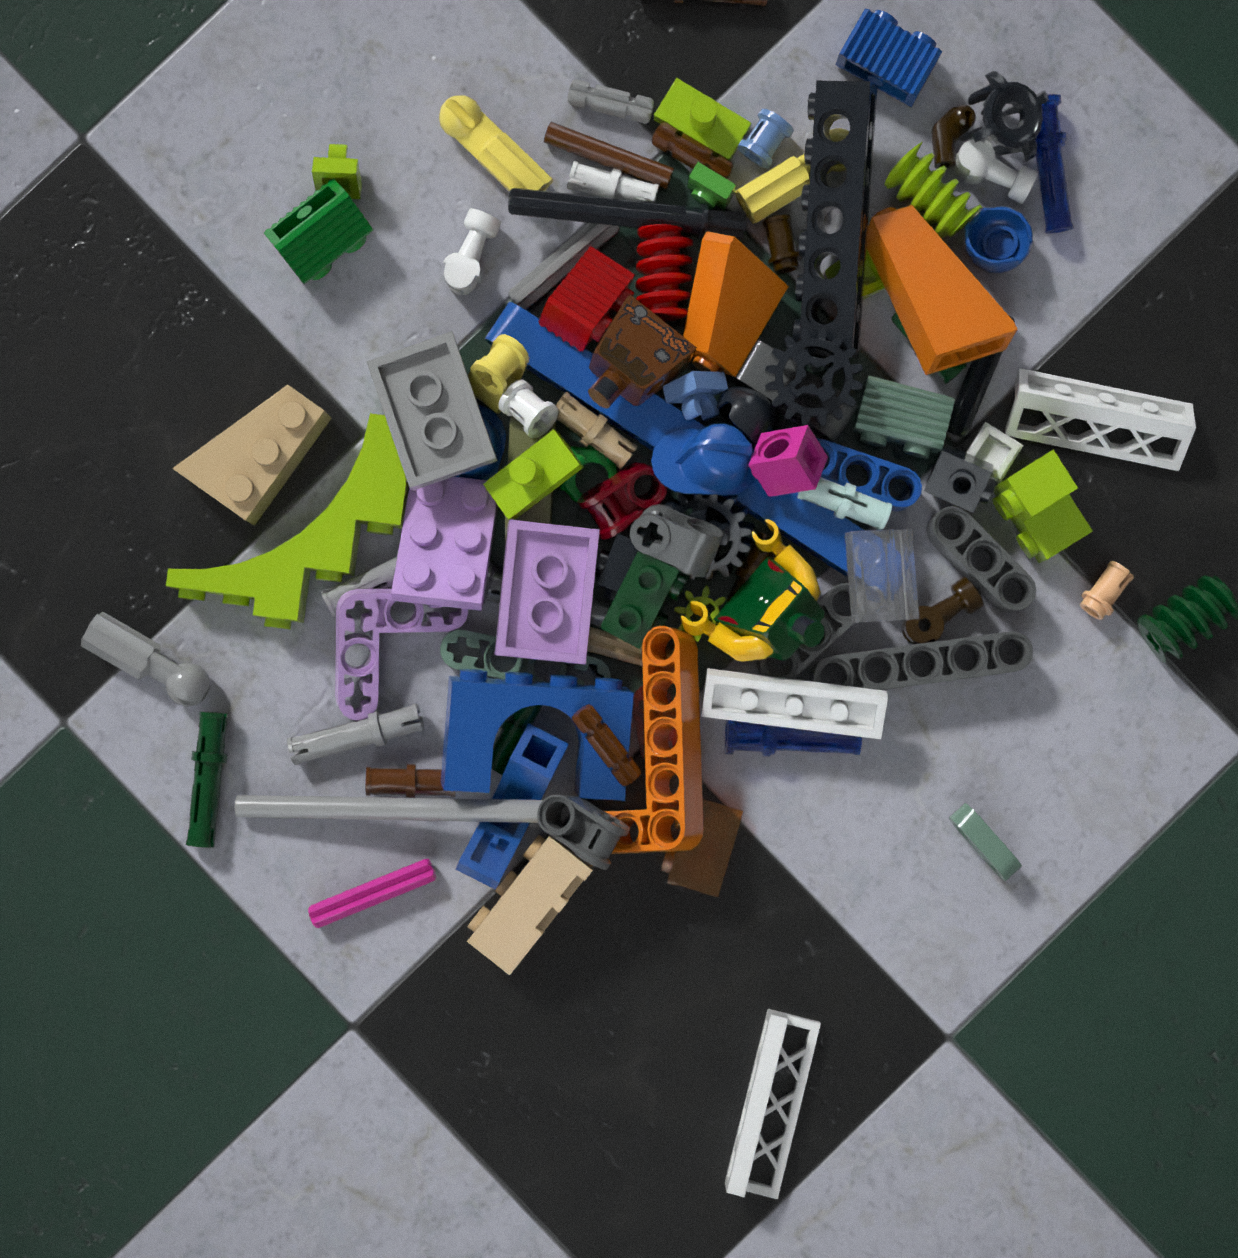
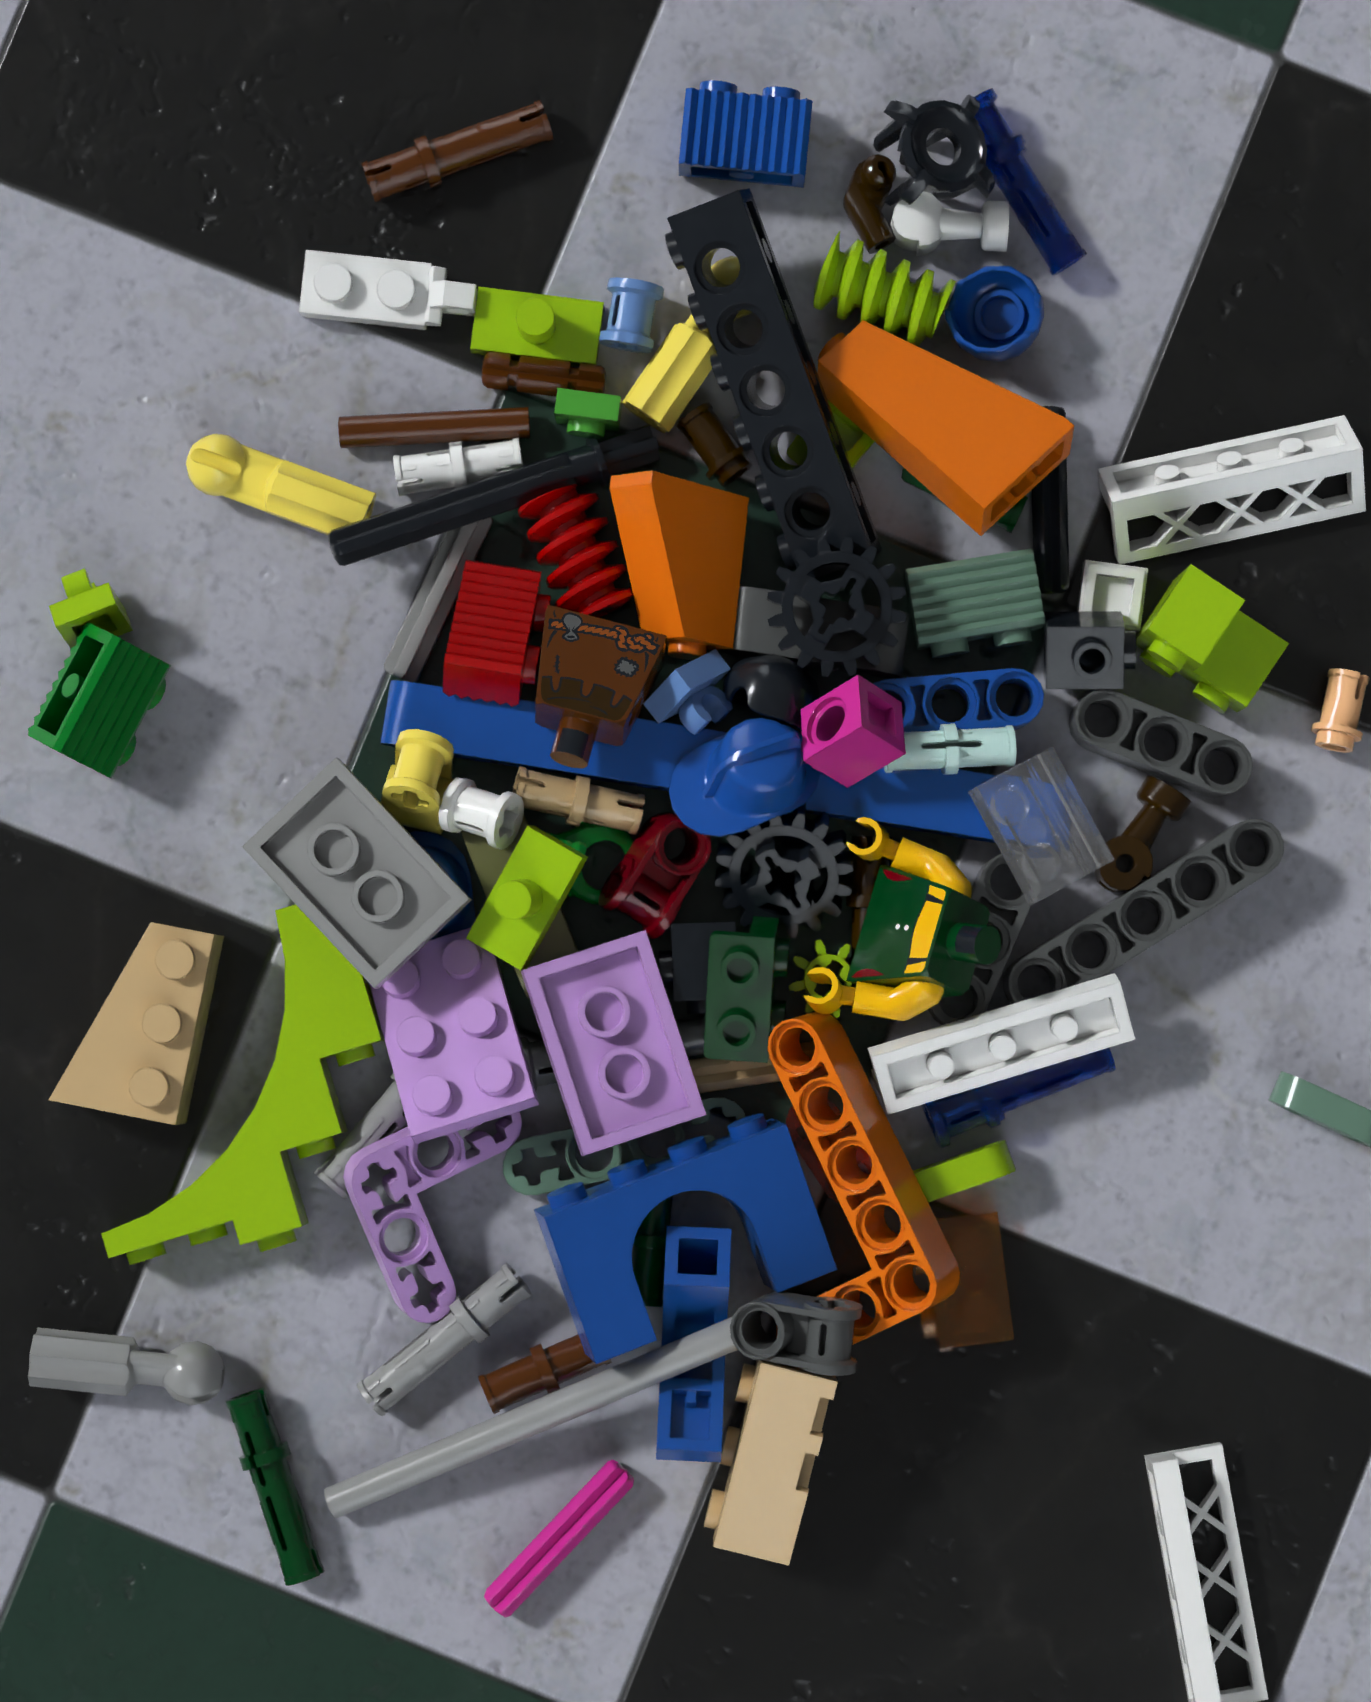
camera: 25 degrees left, 0 degrees up
(463, 268) = (310, 662): white leg -> none
(606, 745) = (782, 1209): reddish brown axle -> none
(610, 101) = (405, 355): light grey axle -> none
(613, 54) = (381, 291): none -> white hinge
(682, 542) = (760, 898): dark grey piece -> none
(735, 775) = (965, 1170): none -> lime beam

